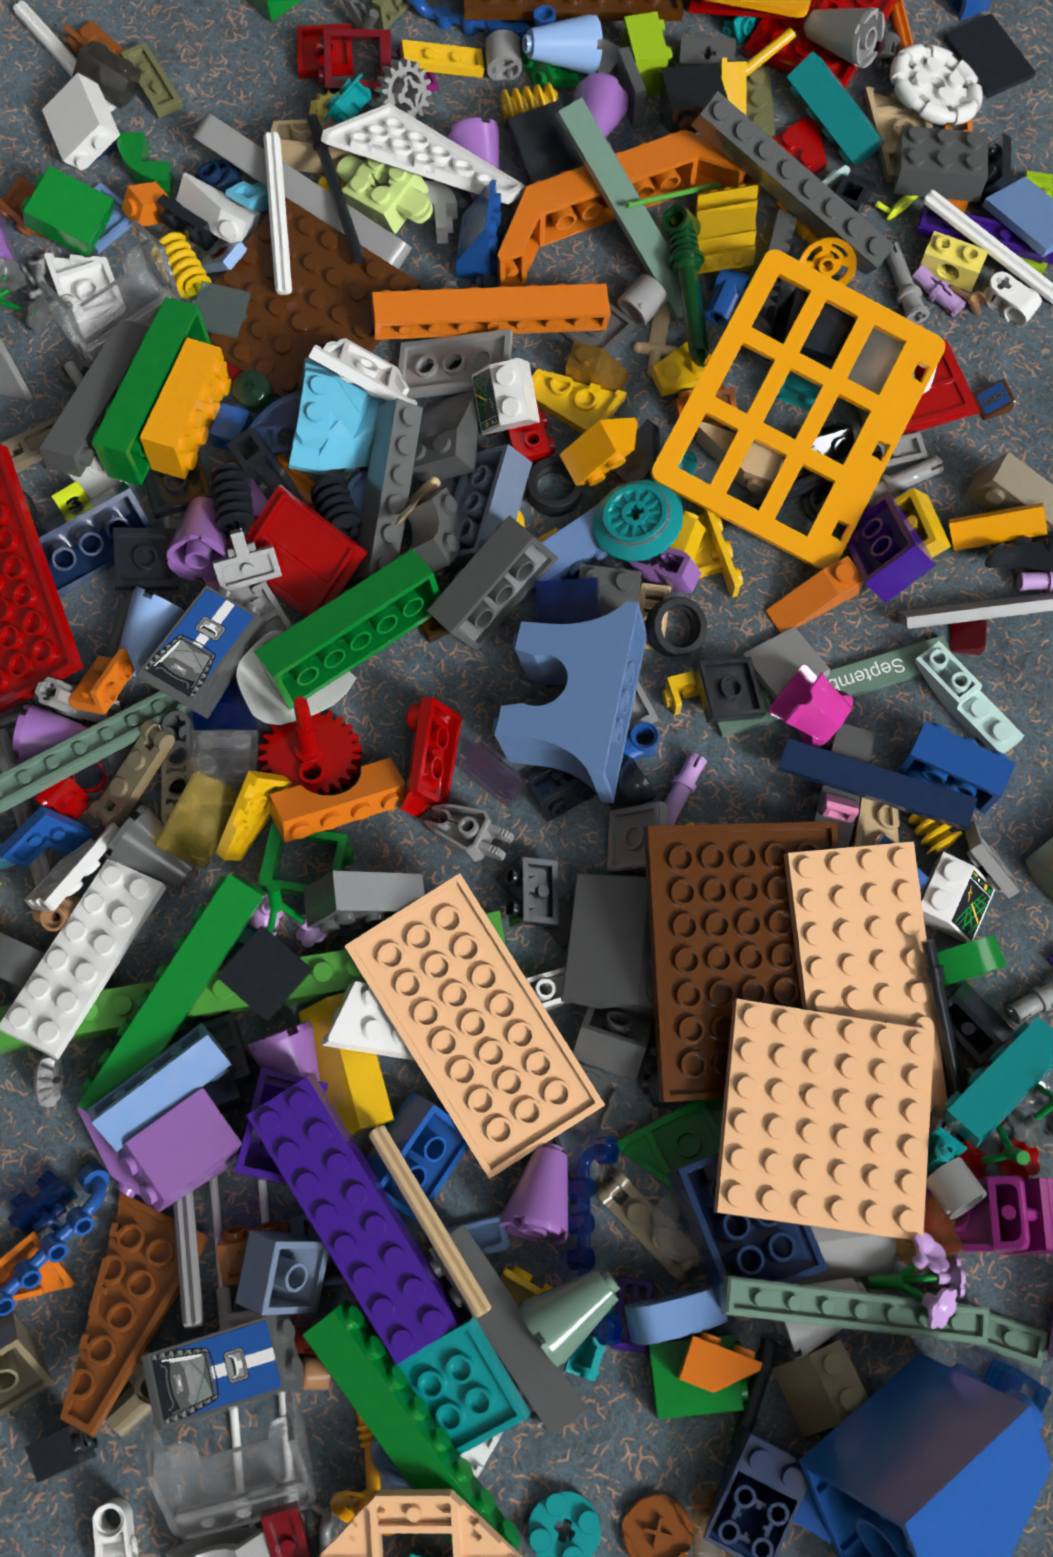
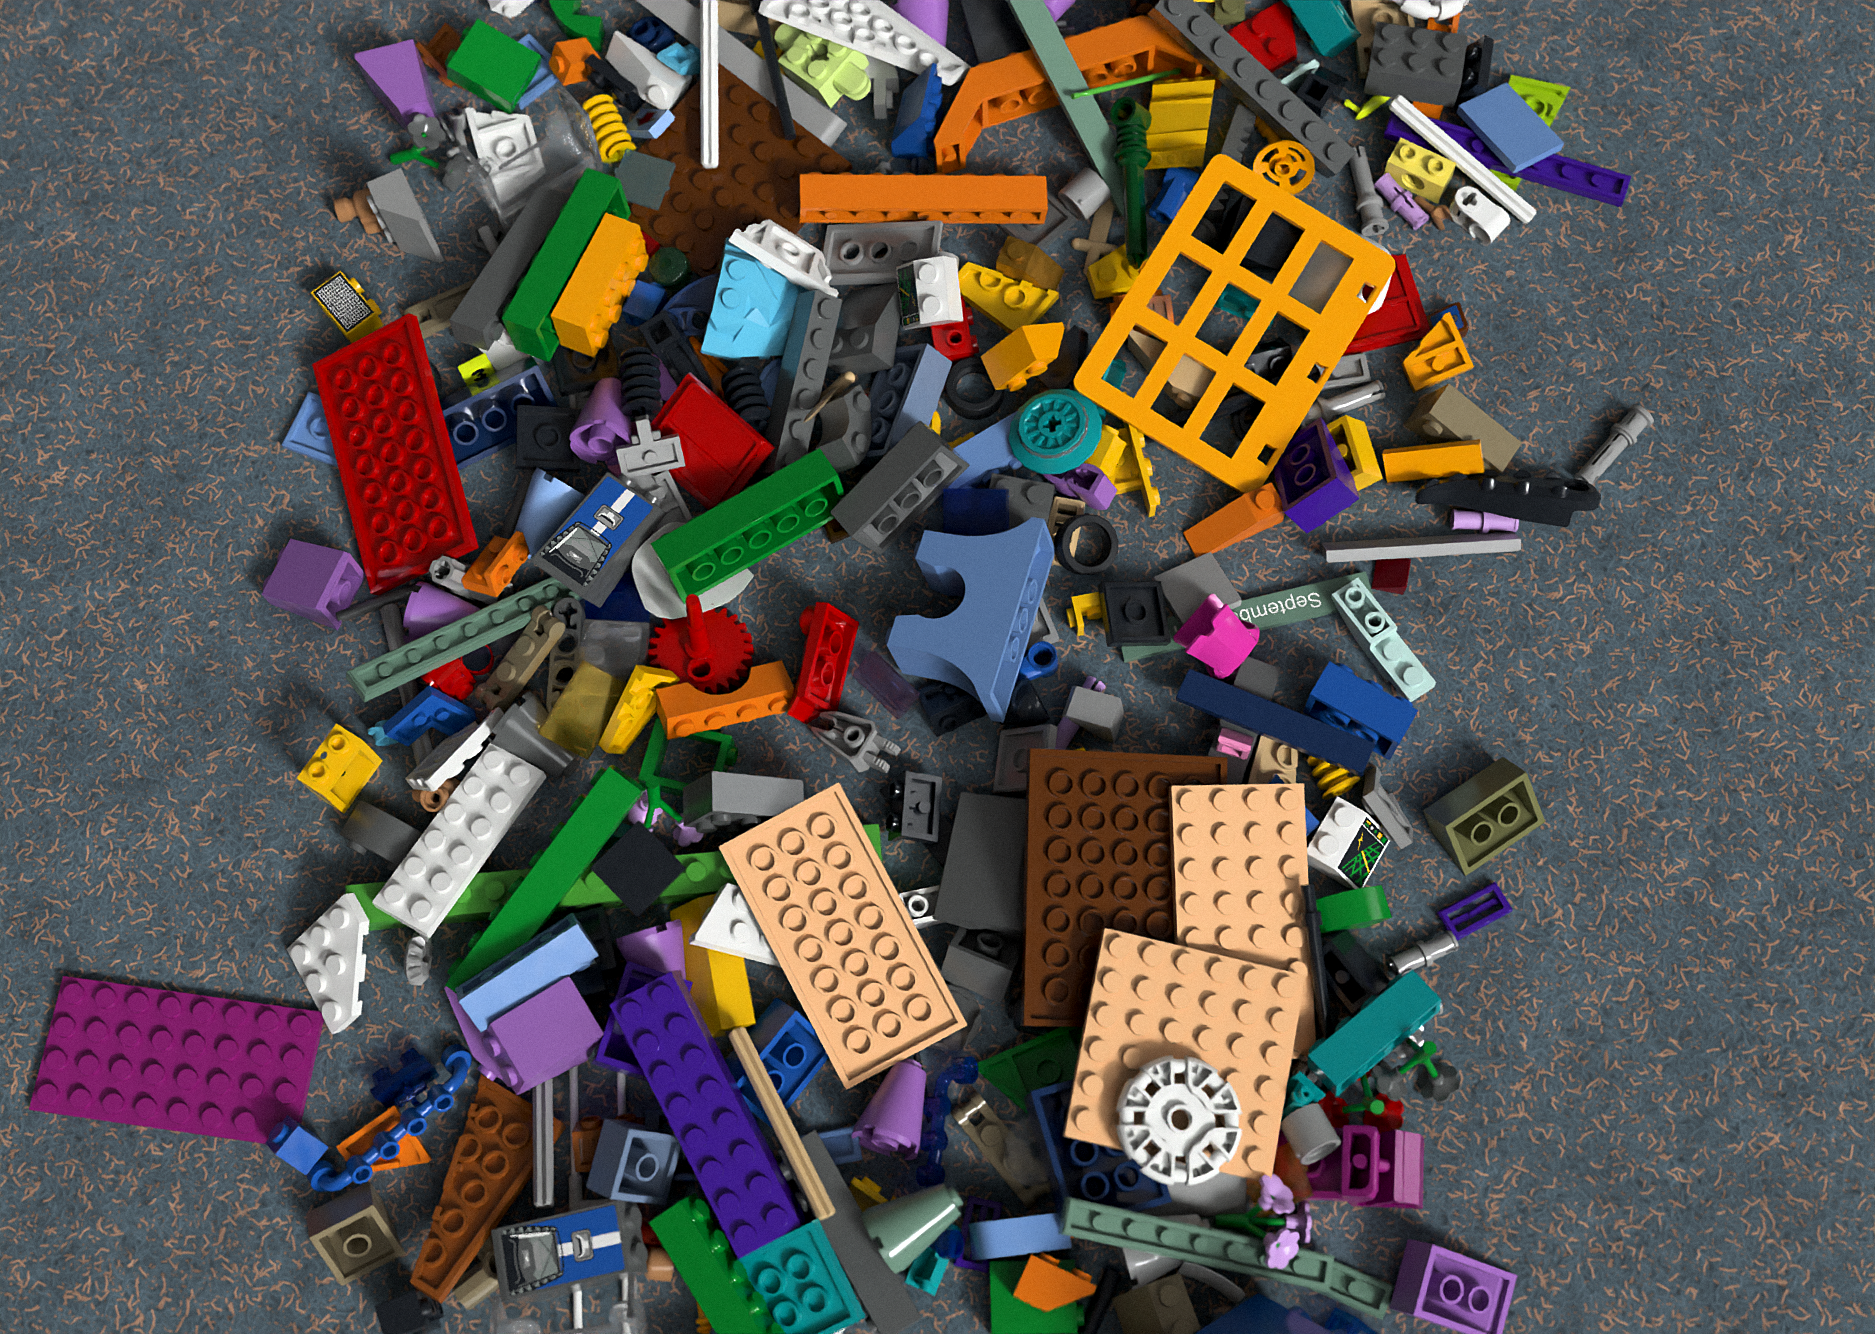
camera: 10 degrees right, 0 degrees up
(700, 786) = (1095, 712): none -> light grey slope
(810, 1192) = (1160, 1130): none -> white plate
(884, 1348) = (1212, 1279): none -> white sticker
(989, 430) = (1437, 356): none -> light orange wing

